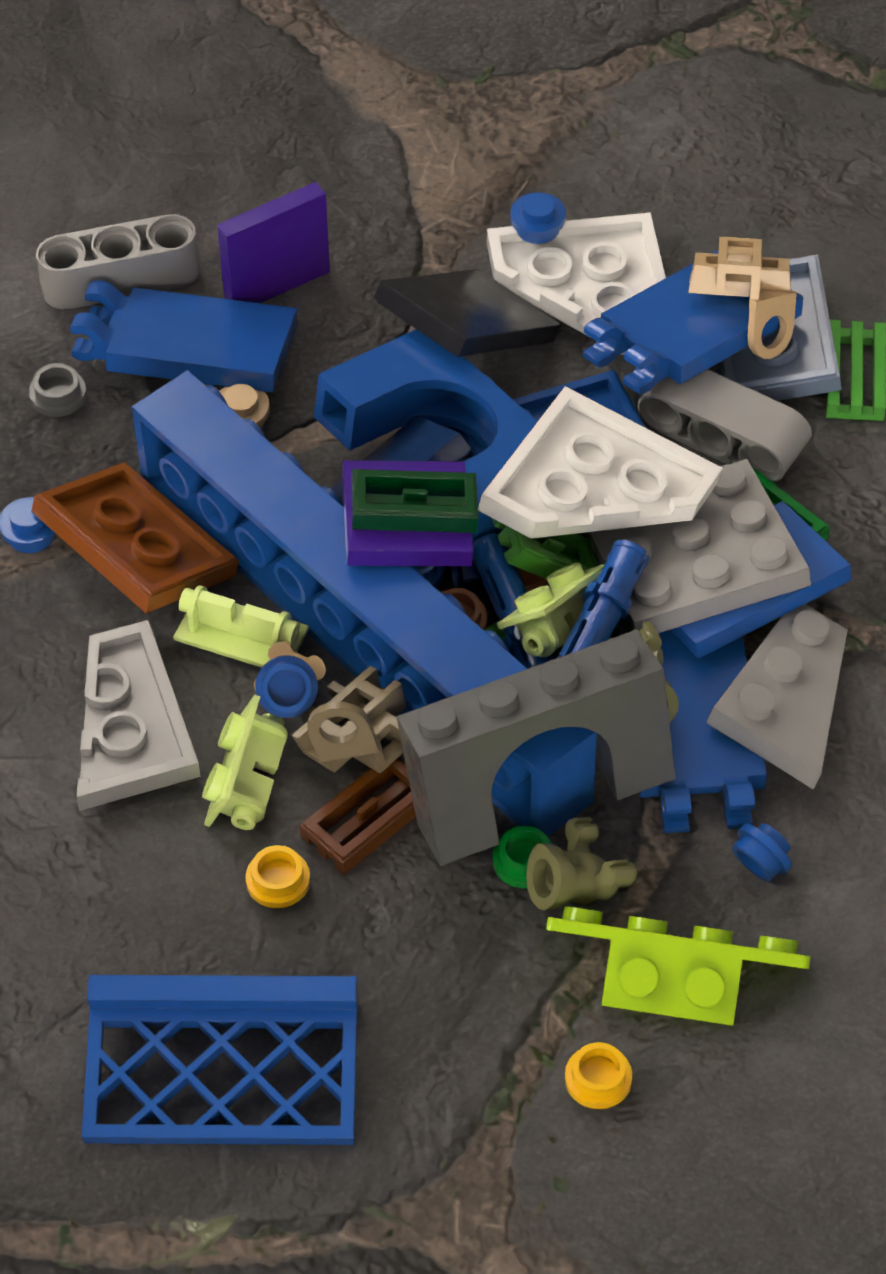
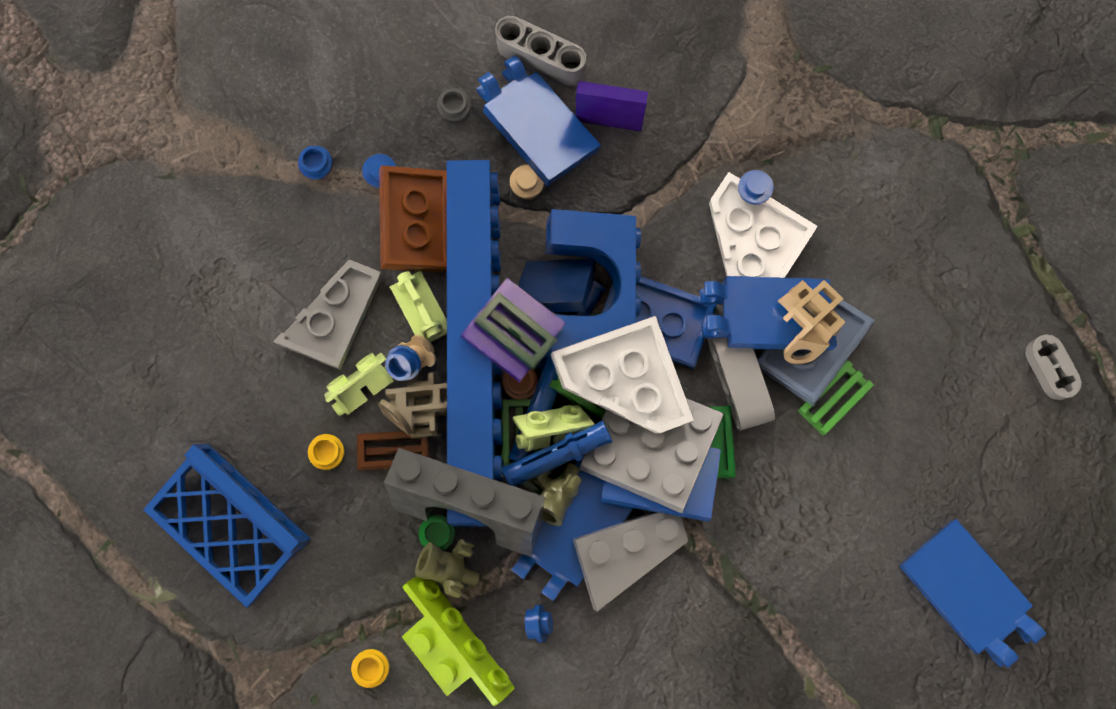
camera: 40 degrees right, 25 degrees up
(466, 312) = (667, 219): black tile -> none

